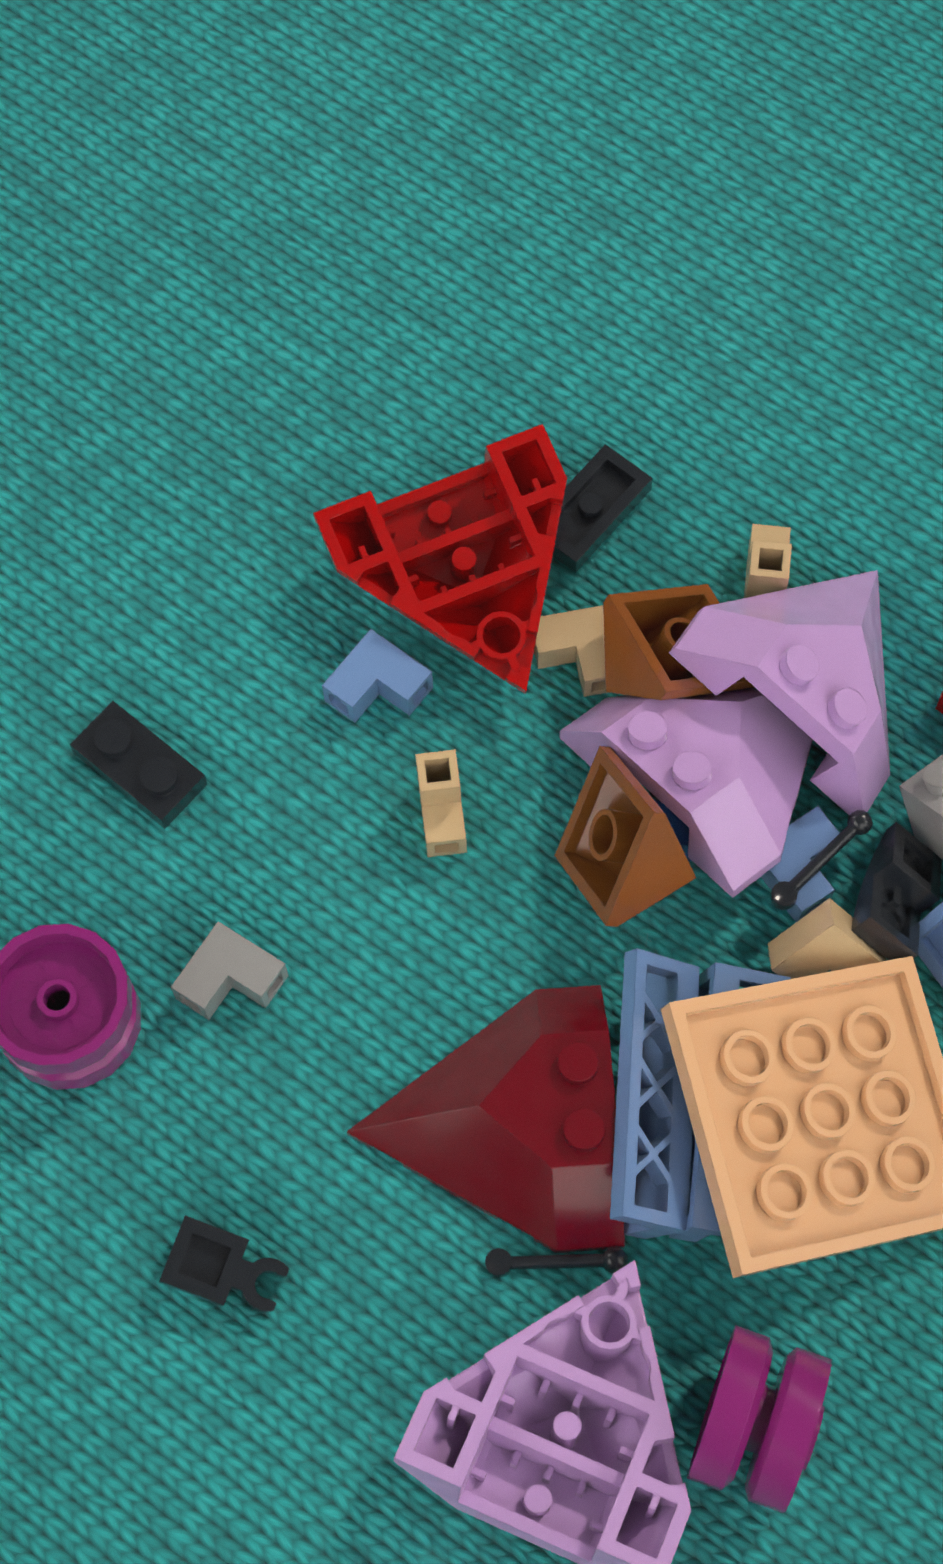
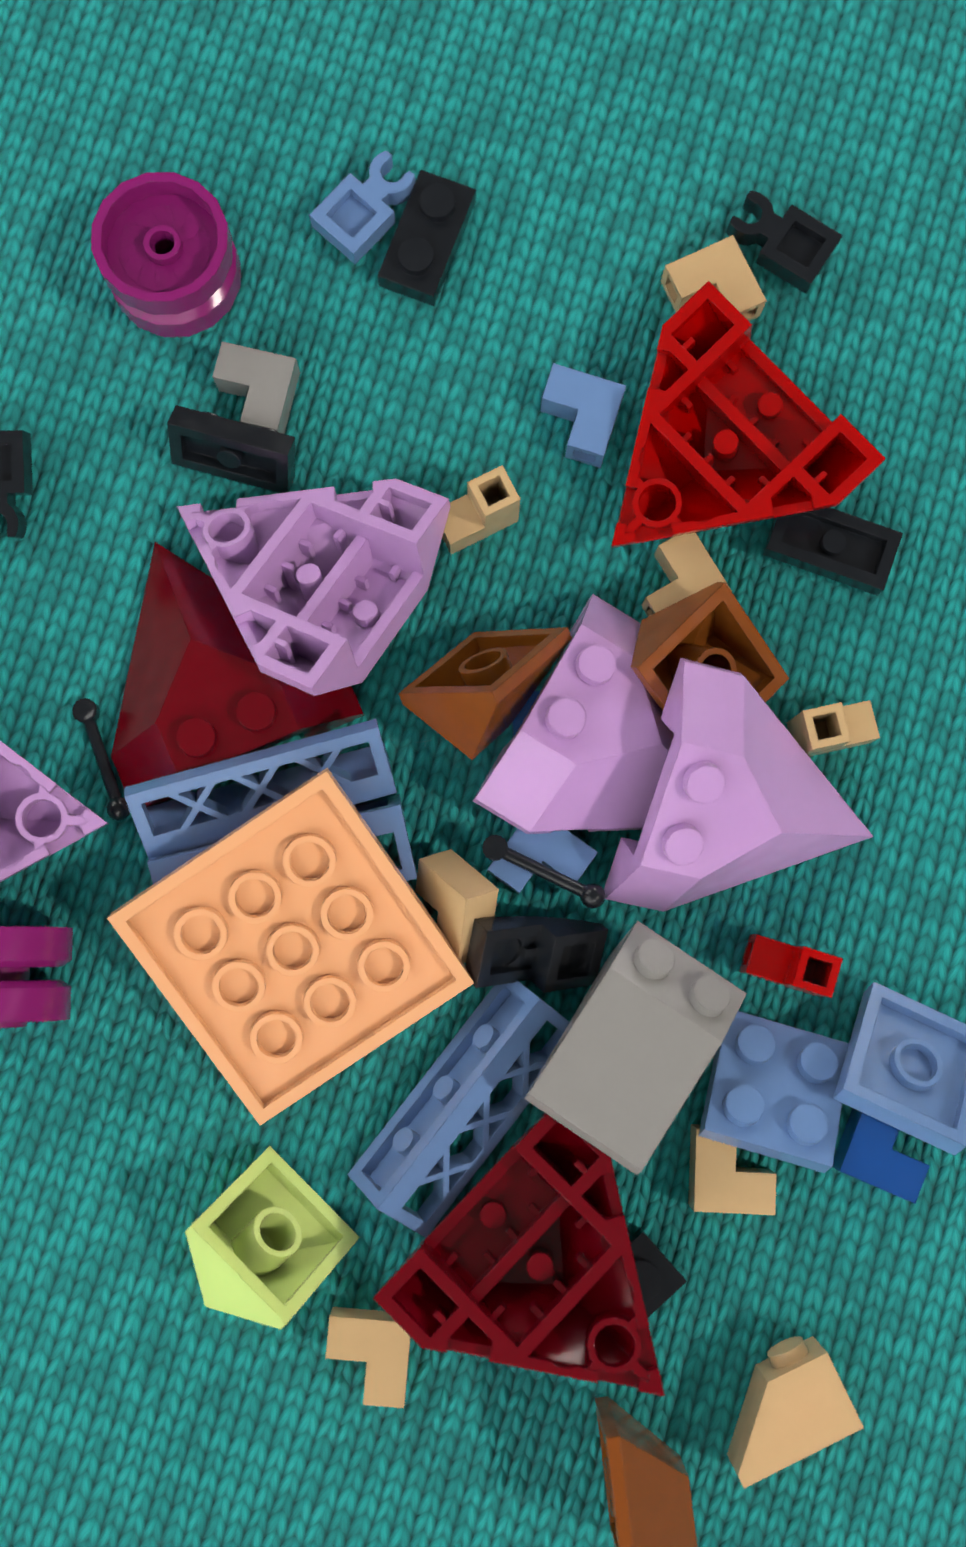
camera: 65 degrees right, 15 degrees up
(87, 815) = (360, 213): none -> medium blue plate
(286, 444) = (791, 245): none -> black plate
(286, 1015) = (231, 449): none -> black plate
(291, 519) = (721, 266): none -> tan piece
(448, 967) = (322, 574): none -> lavender wedge

